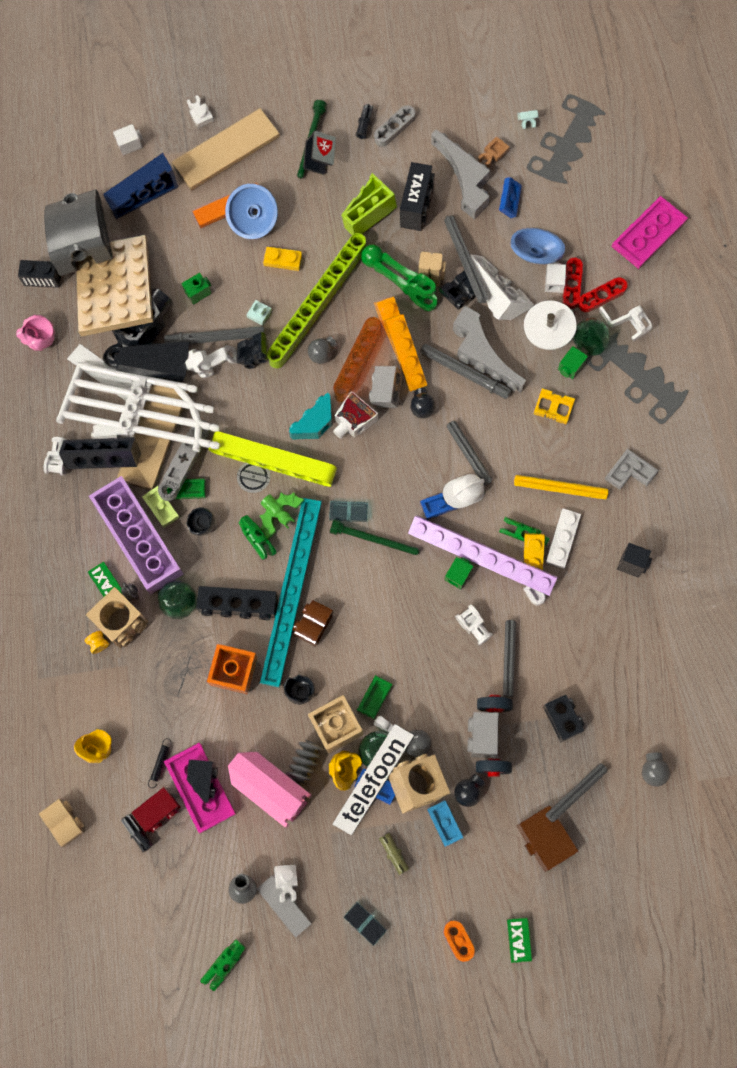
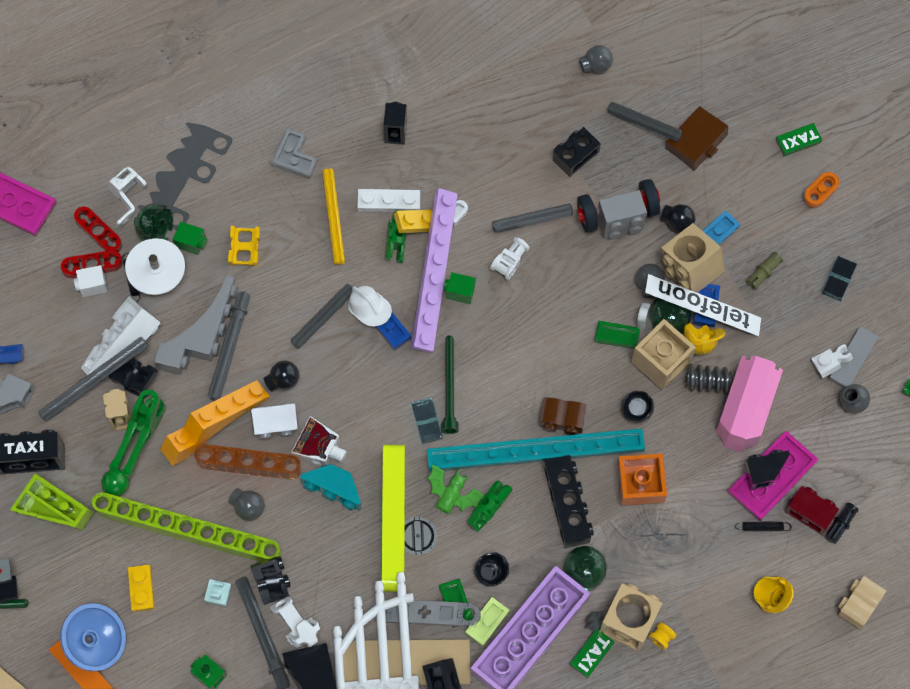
camera: 115 degrees left, 5 degrees down
(537, 246) = (58, 306): medium blue dish -> none

